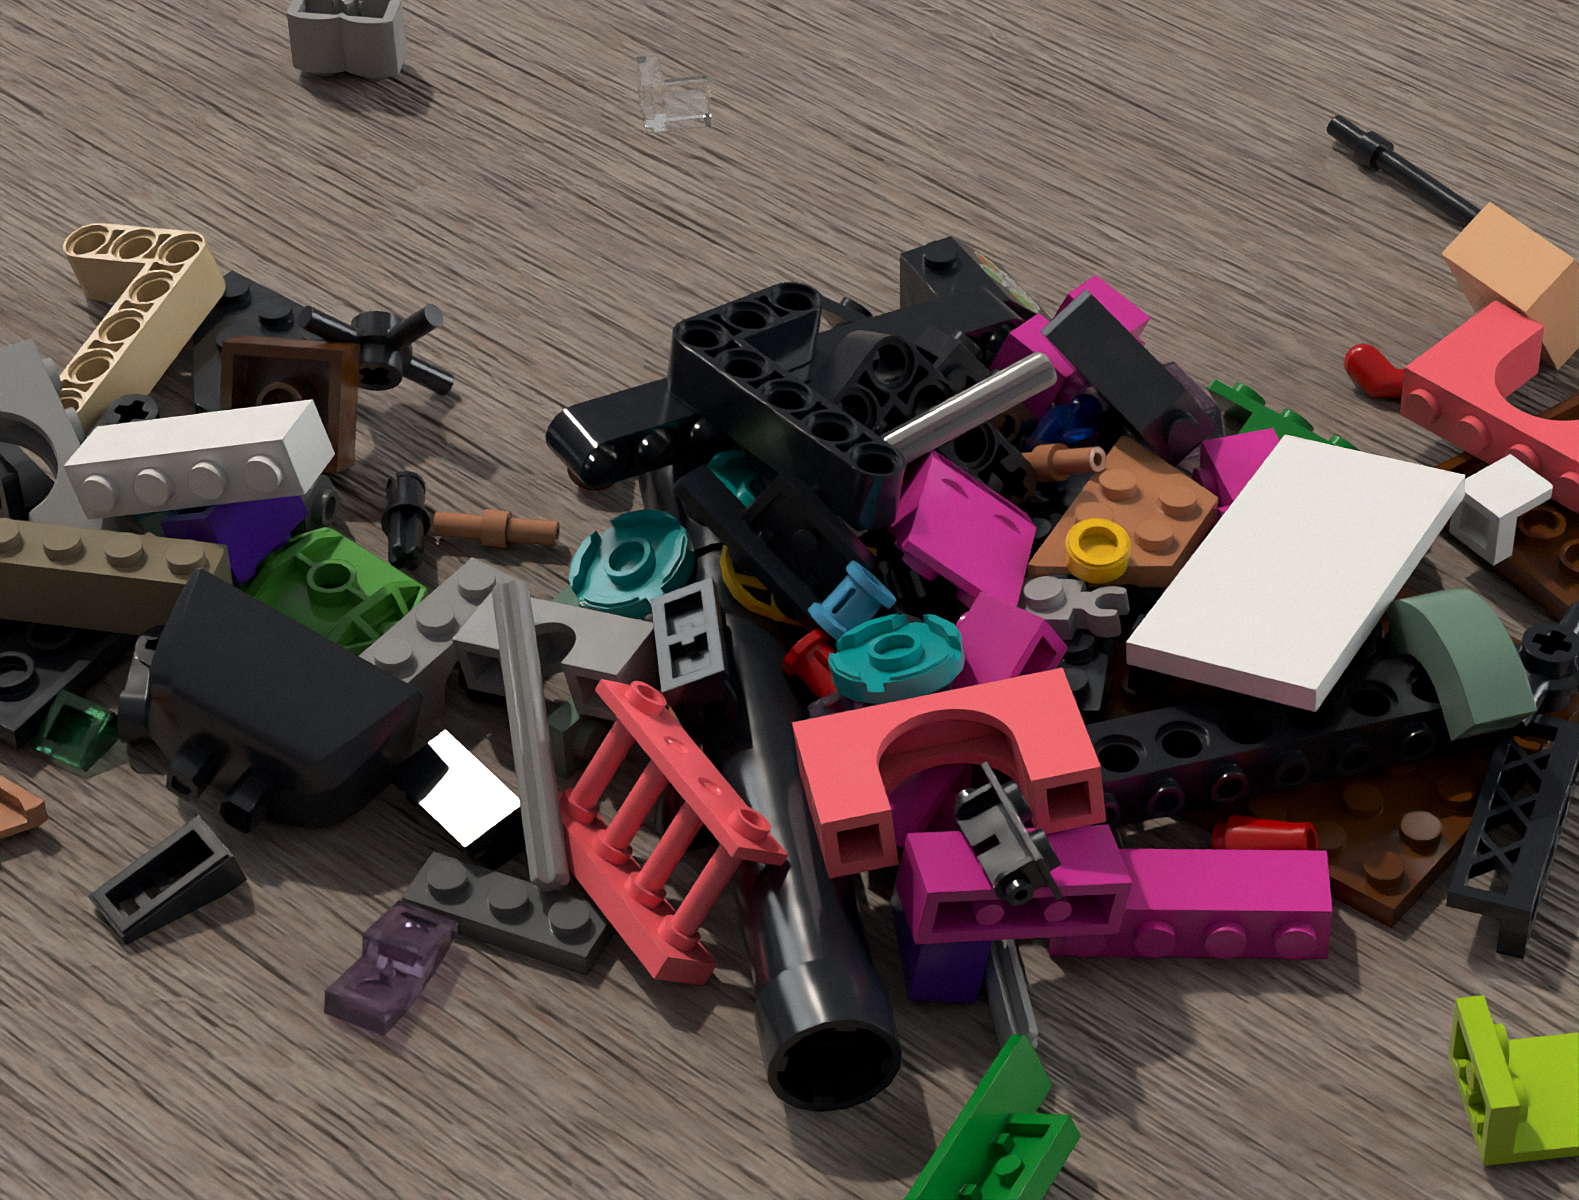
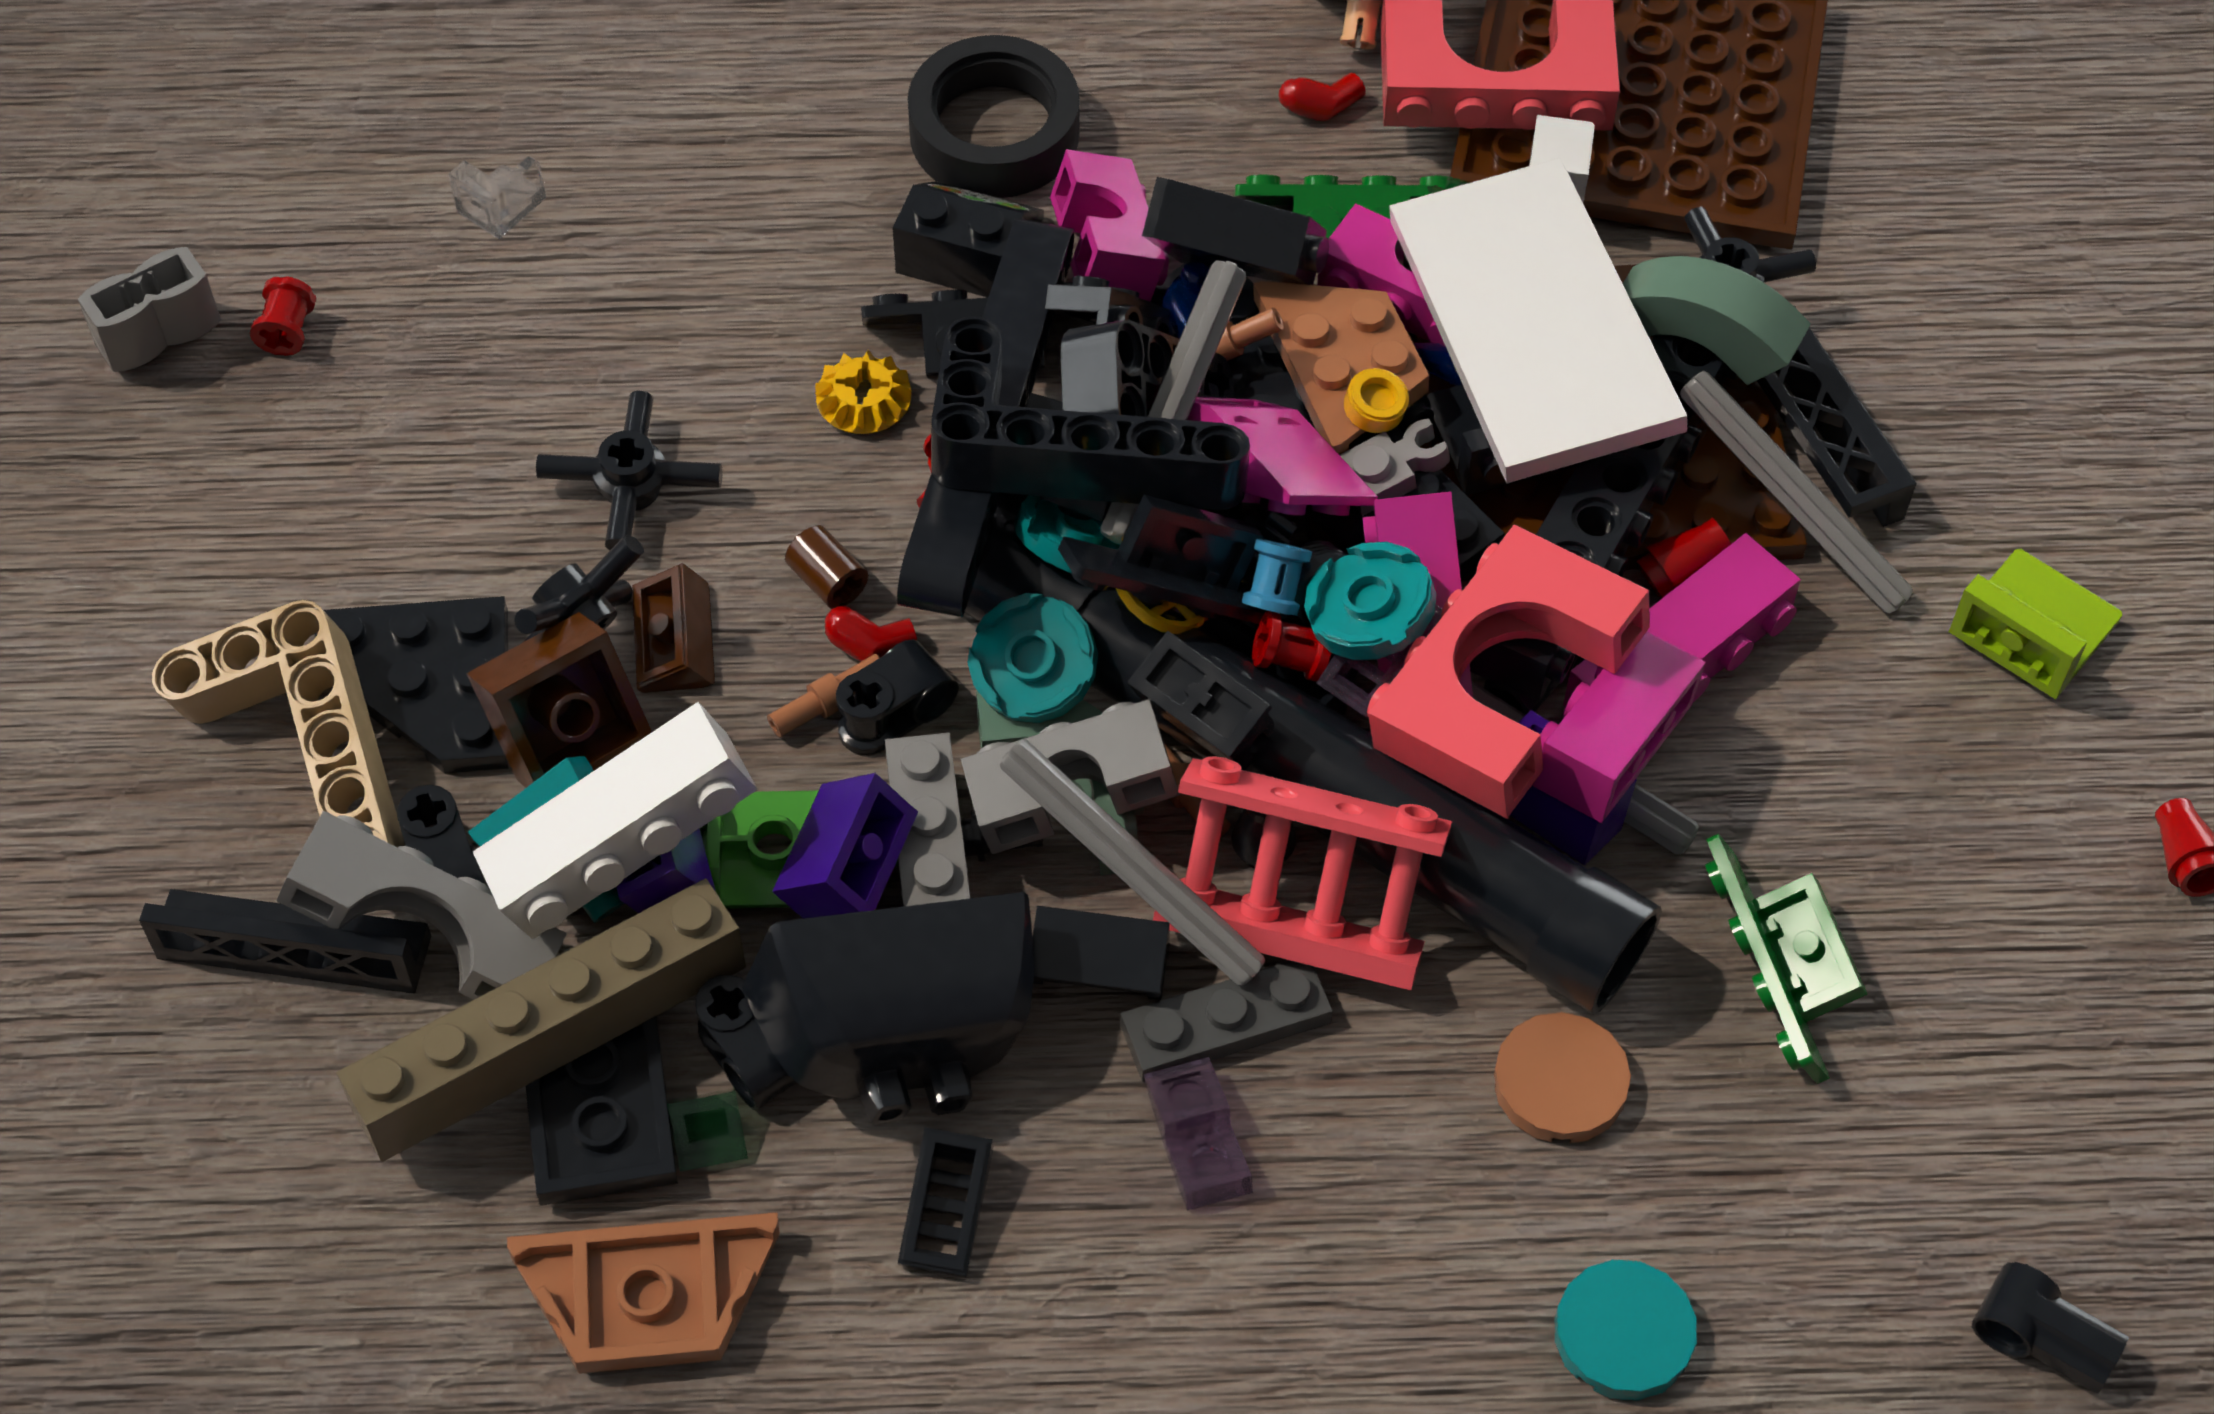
camera: 45 degrees left, 15 degrees up
(350, 592) = (845, 848): none -> dark purple brick
(405, 520) = (757, 744): black axle -> none
(433, 90) = (283, 316): none -> red bush
(449, 429) = (673, 631): none -> reddish brown slope
(535, 546) = (897, 692): none -> black piece
(537, 309) = (629, 469): none -> black bar
(564, 504) = (862, 637): none -> red arm
(705, 1127) = (1561, 1077): none -> nougat tile
(1021, 859) = (1645, 699): black hinge -> none
(1099, 200) = (993, 63): none -> black tyre
(1405, 849) = (1796, 492): none -> light grey axle

